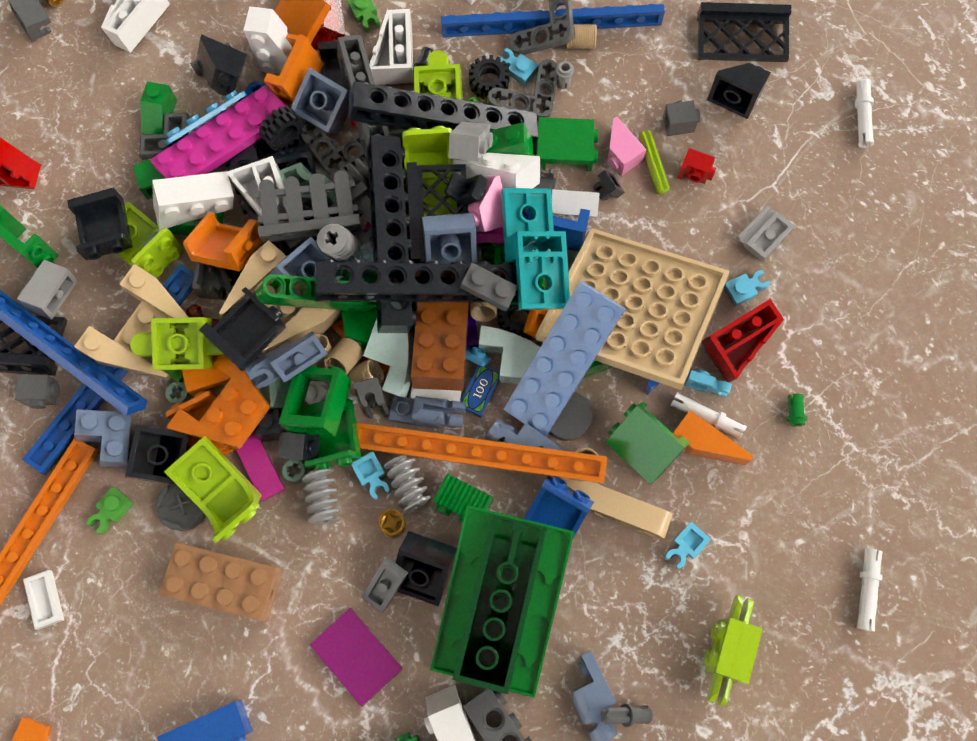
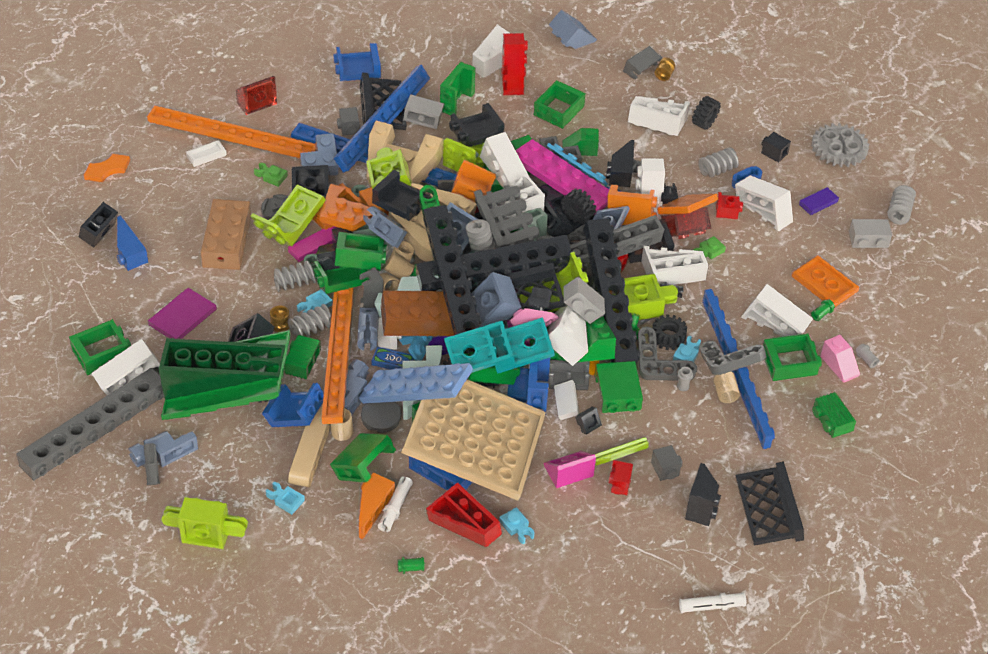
camera: 75 degrees right, 25 degrees down
(74, 102) = (559, 91): none -> green window
(384, 584) = (233, 317): dark grey plate -> none
(488, 286) = (457, 316): dark grey plate -> none
(624, 148) = (625, 425): bright pink slope -> none
(674, 215) = (571, 468): none -> dark pink slope
(704, 382) = (424, 495): medium azure plate -> none
(765, 233) = (570, 533): light grey plate -> none
(869, 589) = (263, 622): white pin -> none

